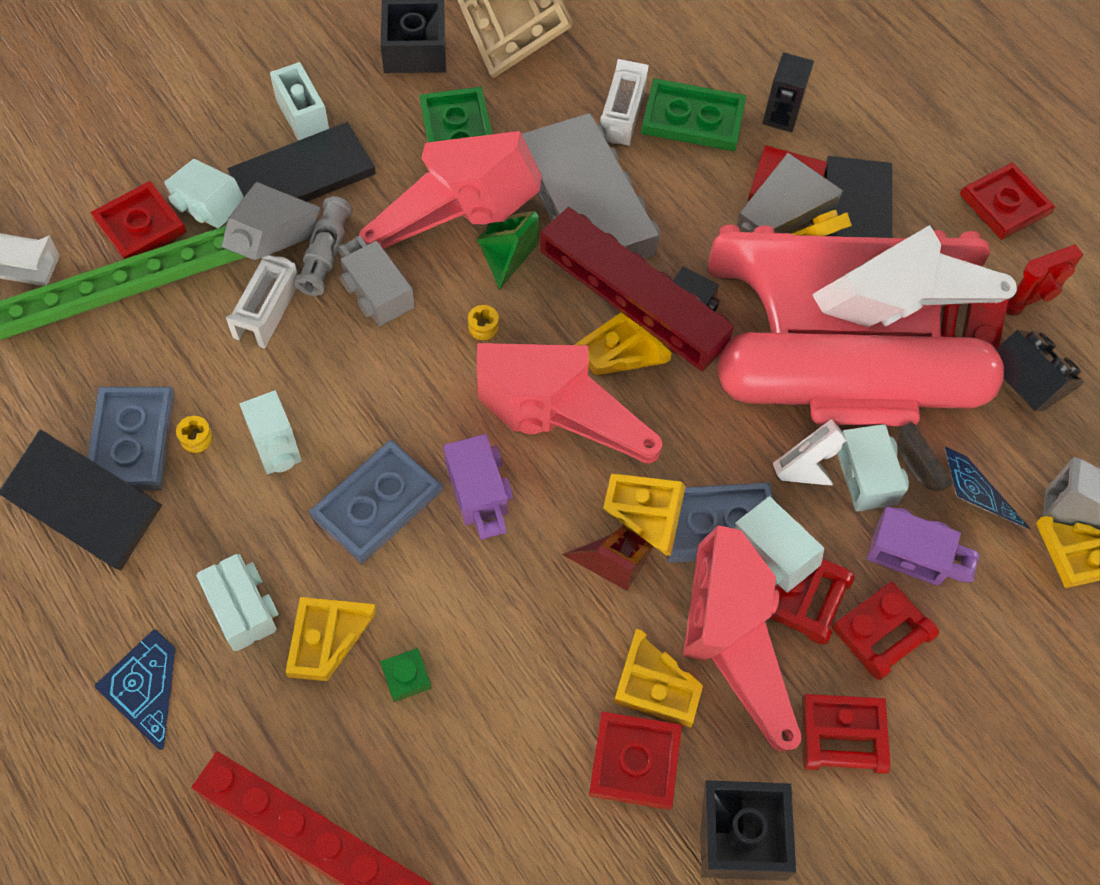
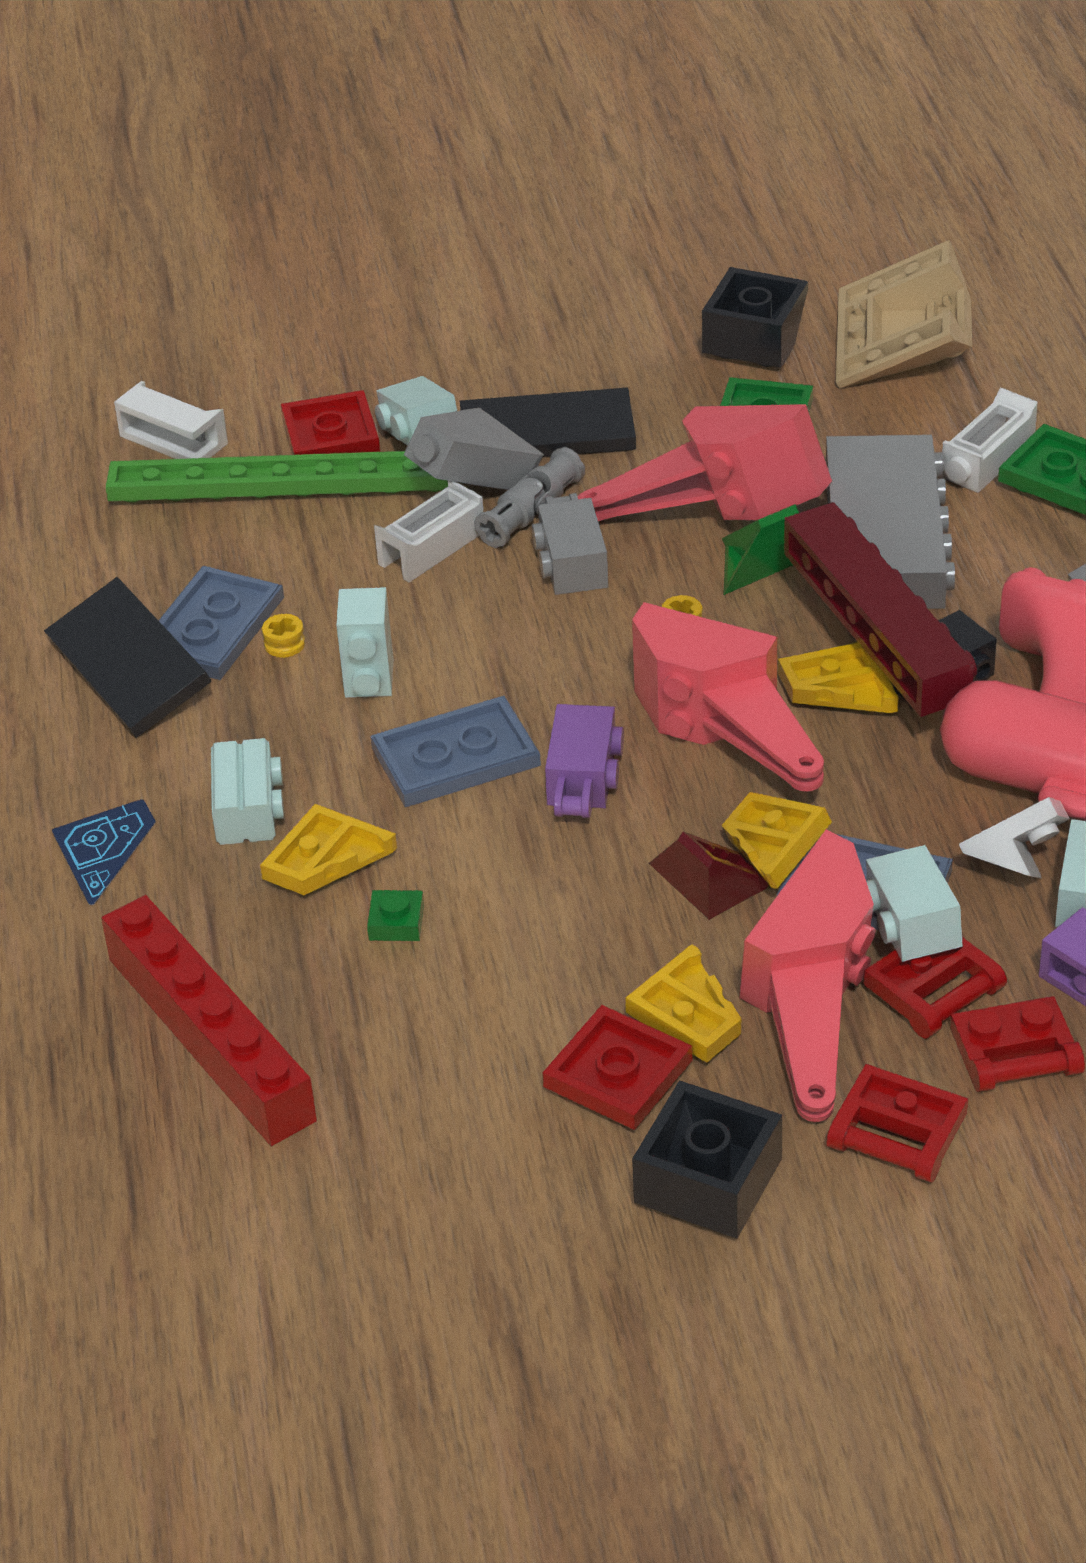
camera: 30 degrees right, 20 degrees down
(299, 101) = (577, 349): light aqua brick -> none

